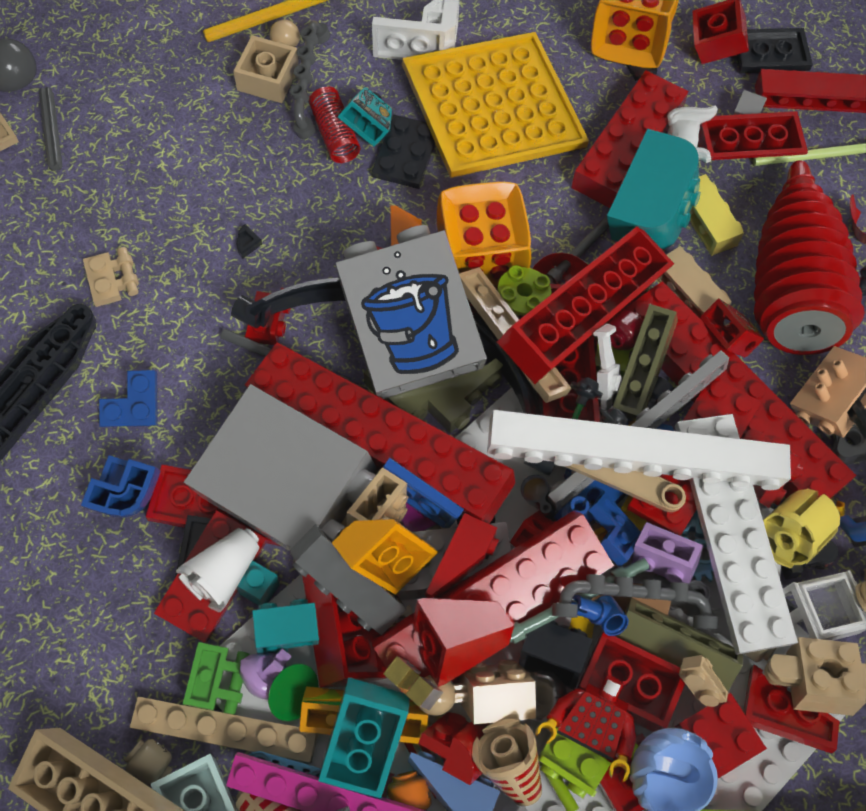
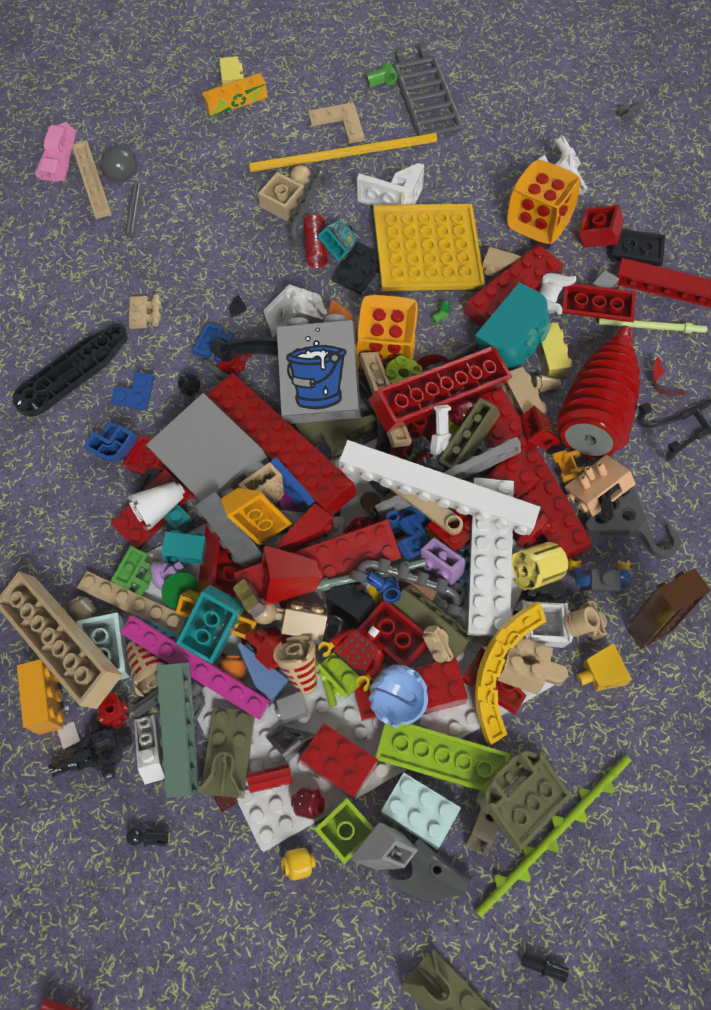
camera: 20 degrees right, 0 degrees up
(211, 372) = (189, 384): none -> black gear
(221, 298) = (209, 334): none -> blue plate
(337, 223) = (294, 303): none -> white bracket
(543, 186) = (443, 313): none -> arm
(598, 106) = (498, 261): none -> tan slope
(715, 261) = (546, 383): none -> tan cone
(784, 373) = (567, 465): none -> light orange piece
(789, 693) = (491, 666): none -> yellow plate

